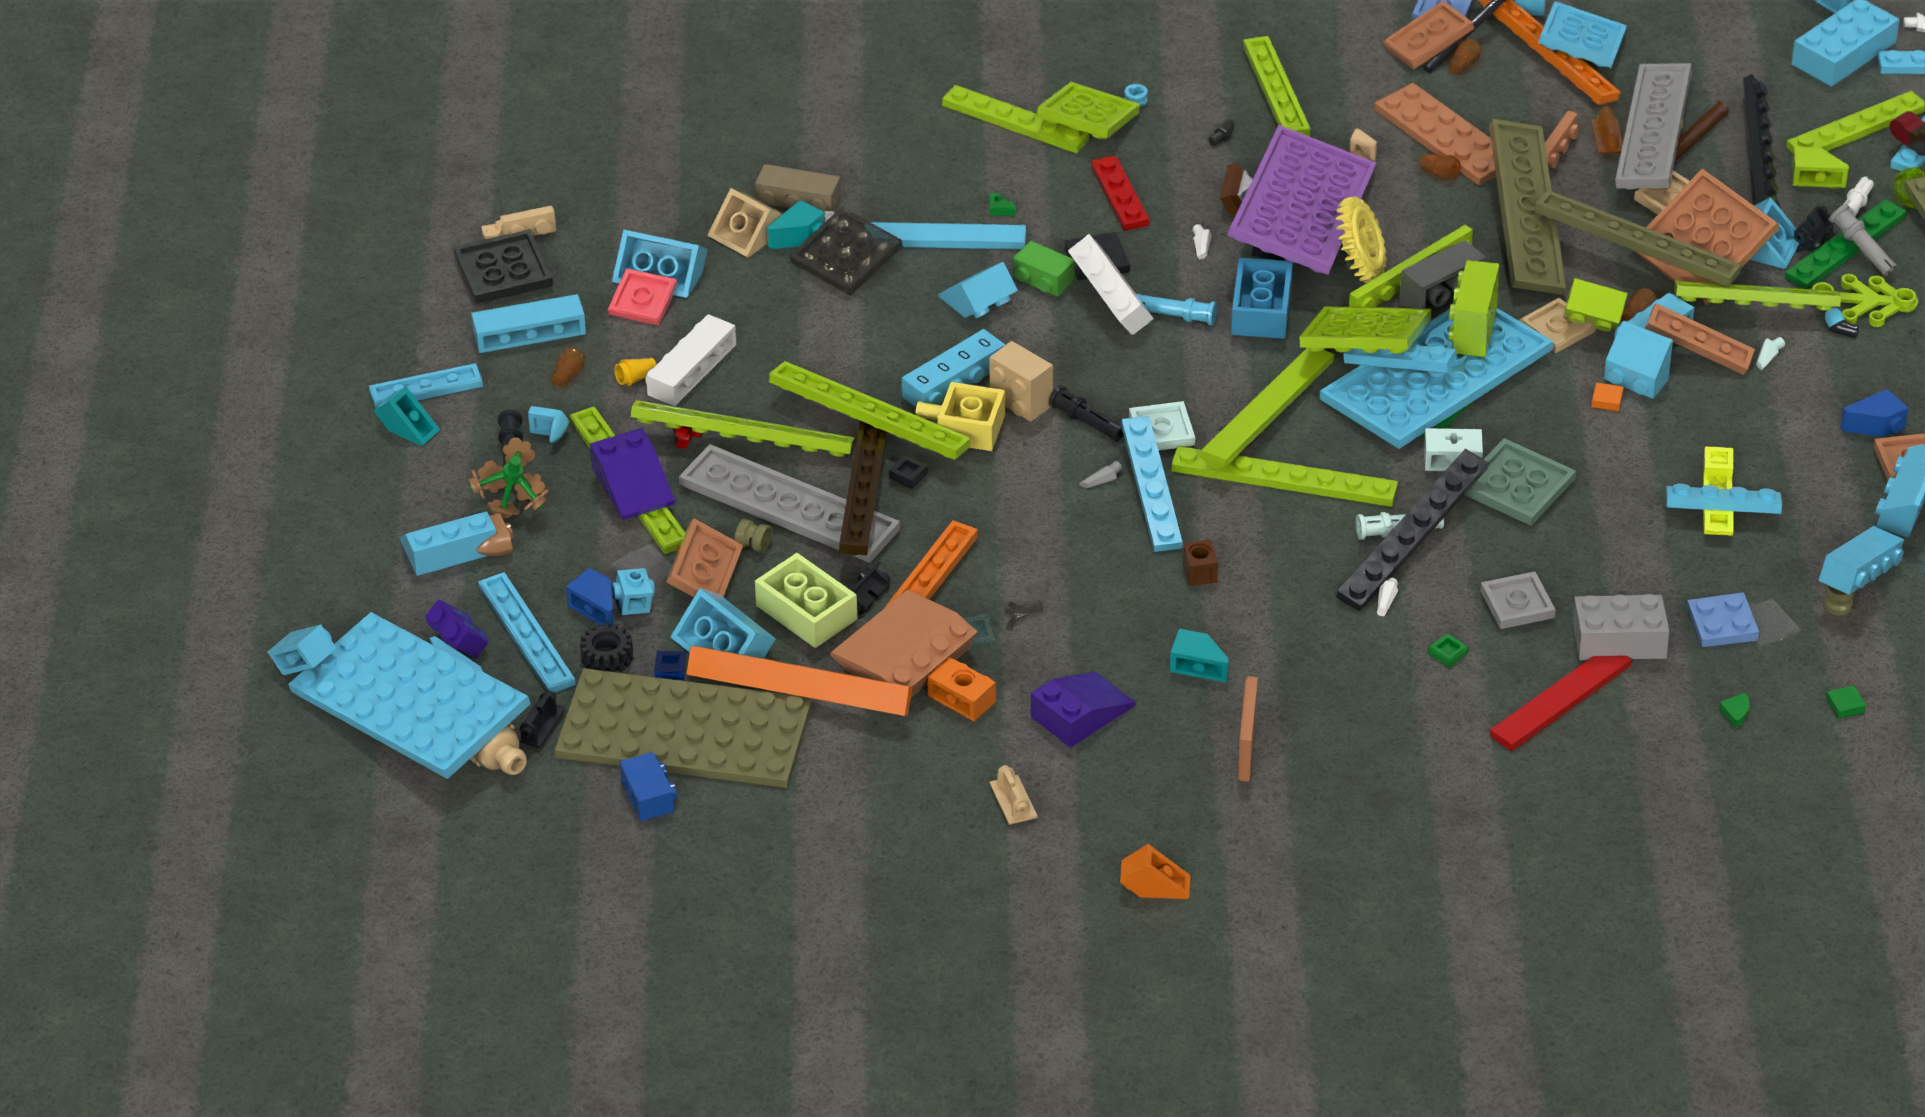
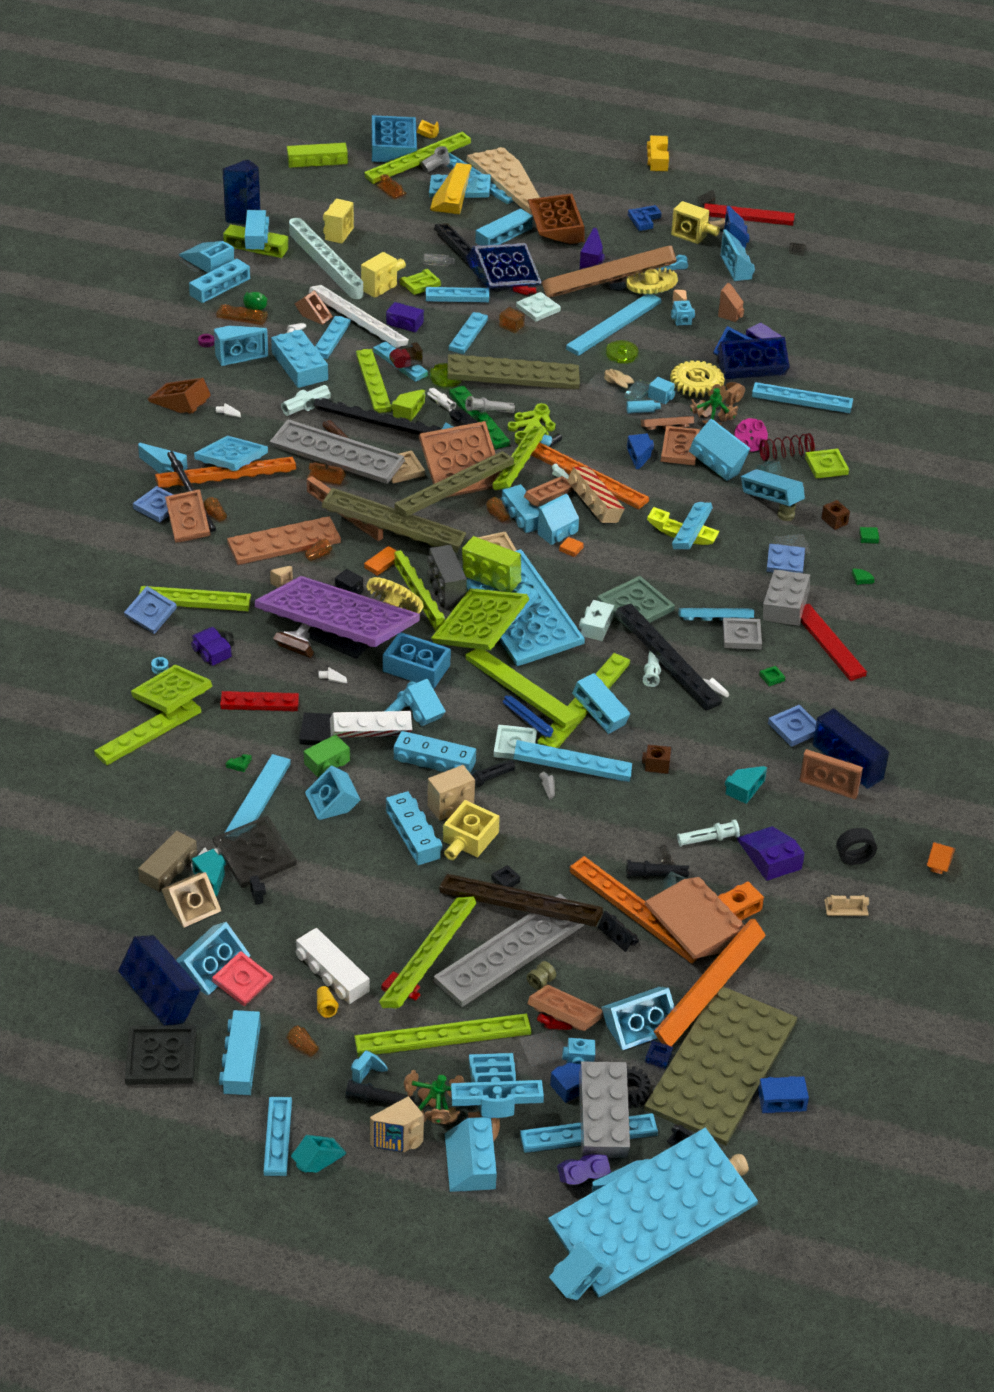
camera: 75 degrees left, 0 degrees up
(458, 458) = (397, 1127): none -> tan slope
(538, 220) = (120, 1033): tan hinge -> none
(543, 620) = (604, 1109): none -> light grey brick
(547, 527) = (495, 1086): none -> medium azure slope
(594, 223) = (159, 980): none -> clear blue brick
(631, 473) = (454, 1026): dark purple slope -> none
(784, 269) = (257, 889): none -> black plate
(806, 600) = (627, 960): yellowish green brick -> none
(870, 410) = (443, 878): lime plate -> none
(987, 595) = (646, 869): none -> black pin
(1065, 622) = (716, 832): none -> light aqua pin
(1097, 358) = (433, 752): none -> medium azure brick
(1118, 778) = (852, 837): none -> black tyre
(1179, 321) = (423, 702): none -> medium azure brick
(1191, 124) = (211, 646): none -> dark purple brick
(1212, 424) = (528, 716): none -> blue axle
(1224, 54) = (150, 610): none -> medium blue plate
(1271, 481) = (601, 703): none -> medium azure brick
(1313, 741) = (847, 742): none -> clear blue brick
(1348, 688) = (793, 725): none -> medium blue plate
(1386, 206) = (349, 581): none -> black brick
(1448, 223) = (380, 561): none -> orange tile
(1544, 563) = (707, 613): none -> medium azure plate
(1594, 305) = (499, 522): lime slope -> none
(1687, 14) = (228, 411): none -> white bar
(1728, 387) = (595, 494): none -> tan brick
(1761, 69) = (305, 400): none -> light aqua piece
(1785, 381) = (618, 489): none -> orange tile
(1861, 651) = (835, 514): none -> reddish brown brick

